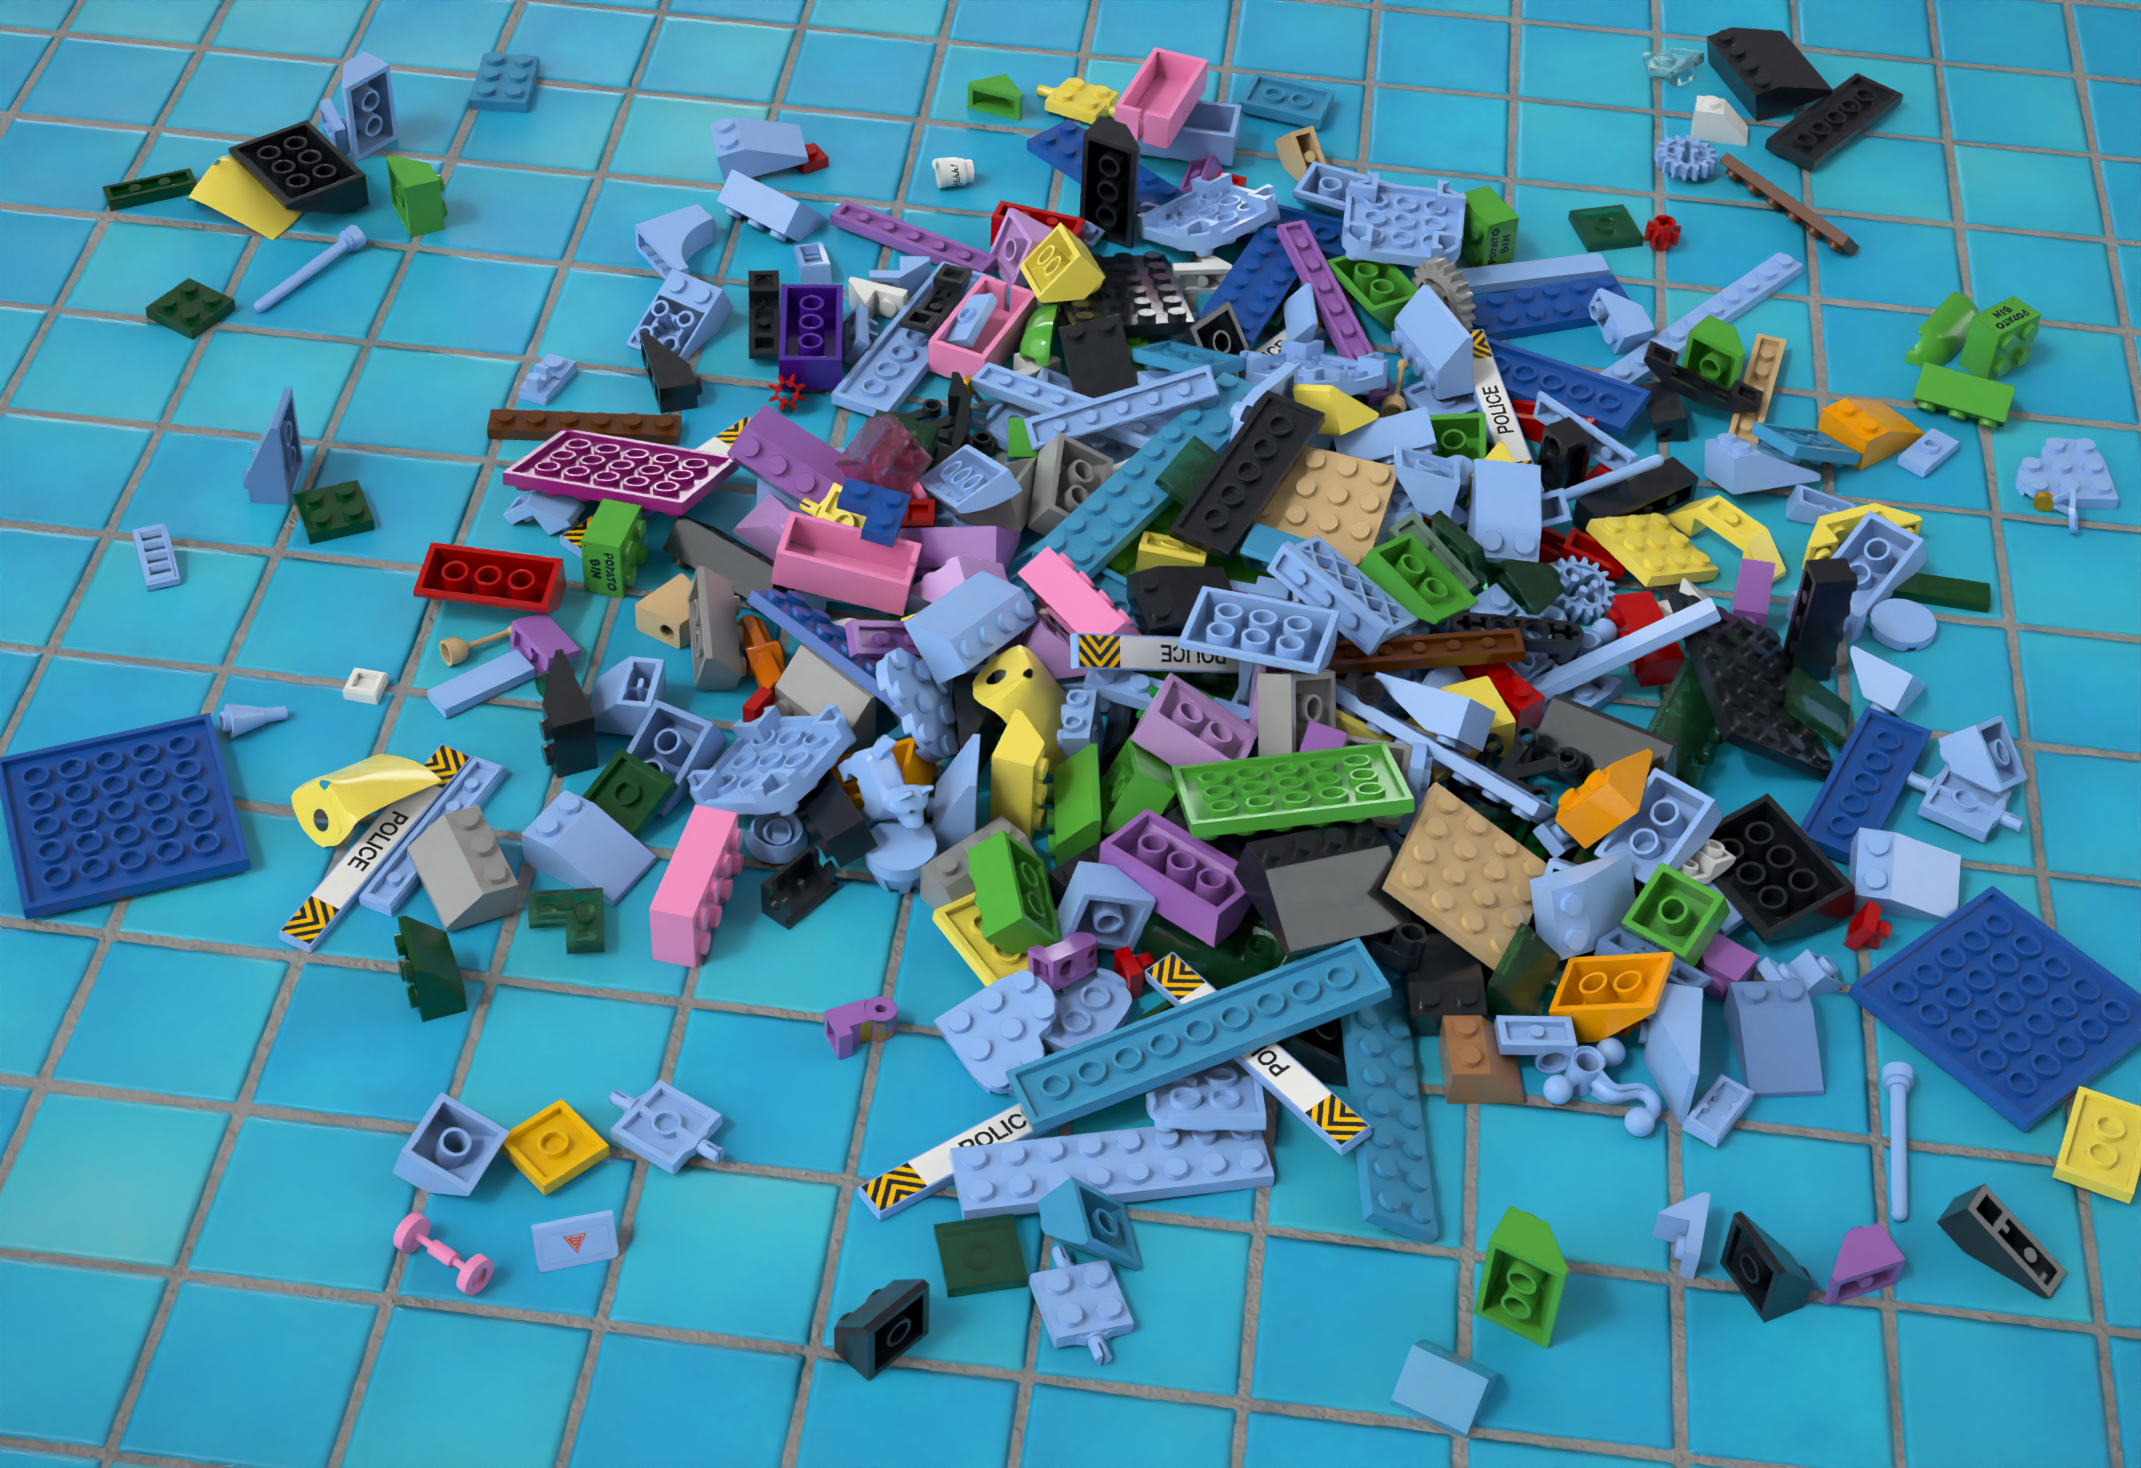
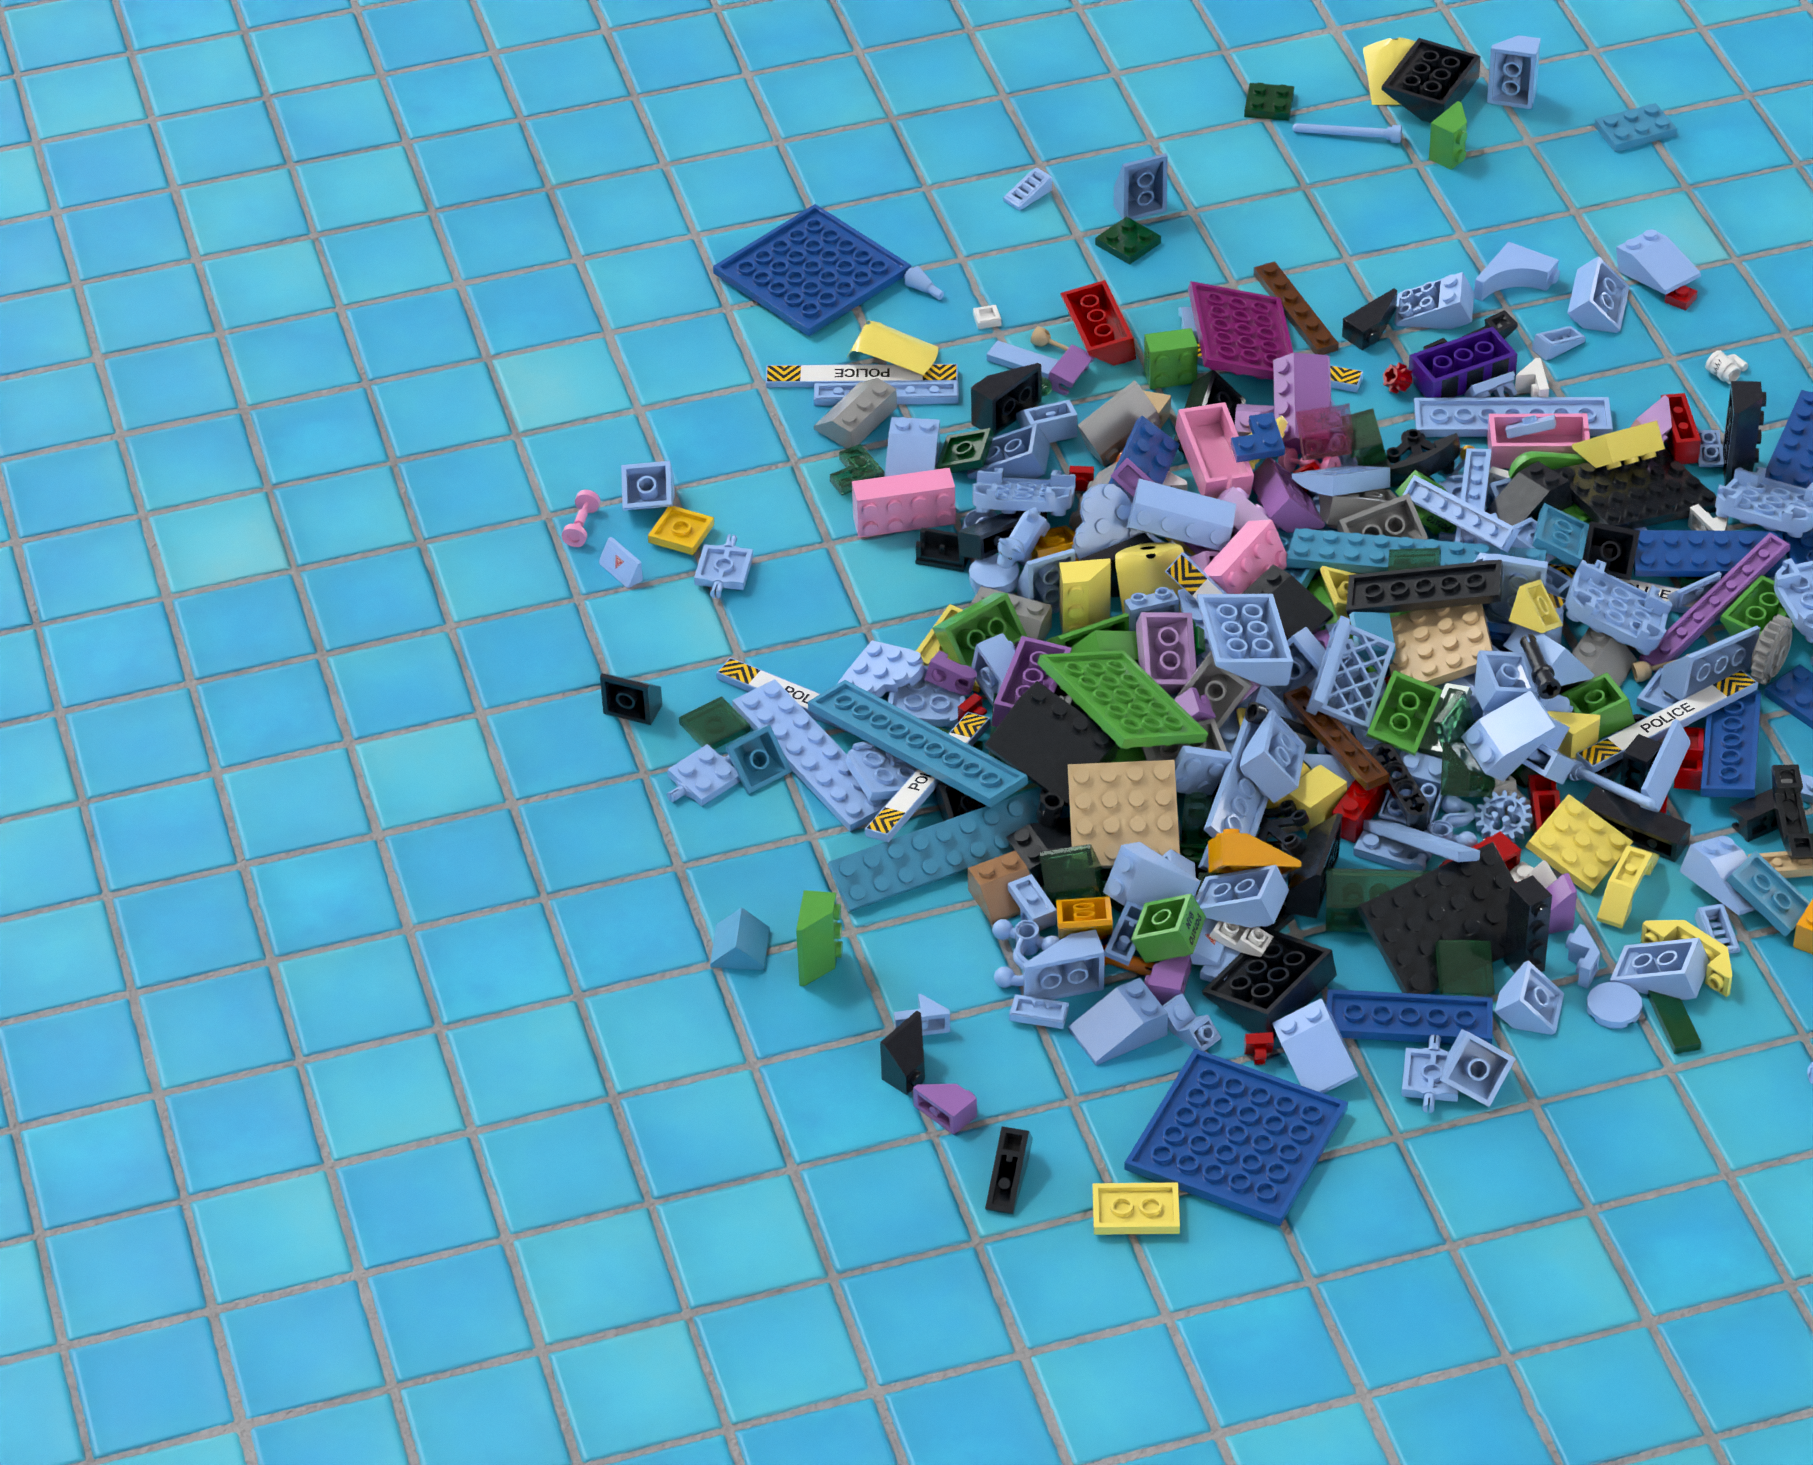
camera: 70 degrees right, 0 degrees up
(149, 189) = (1367, 29): dark green tile -> none
(429, 969) = (769, 427): dark green slope -> none
(547, 379) = (1329, 274): light blue plate -> none
(859, 1024) = (850, 613): medium lavender leg -> none
(910, 238) = (1625, 376): medium lavender plate -> none
(911, 276) = (1575, 386): light blue slope -> none
(947, 292) = (1574, 403): black slope -> none
(1443, 442) = (1542, 673): none -> black pin
(1898, 1080) = (1124, 1094): light blue piece -> none

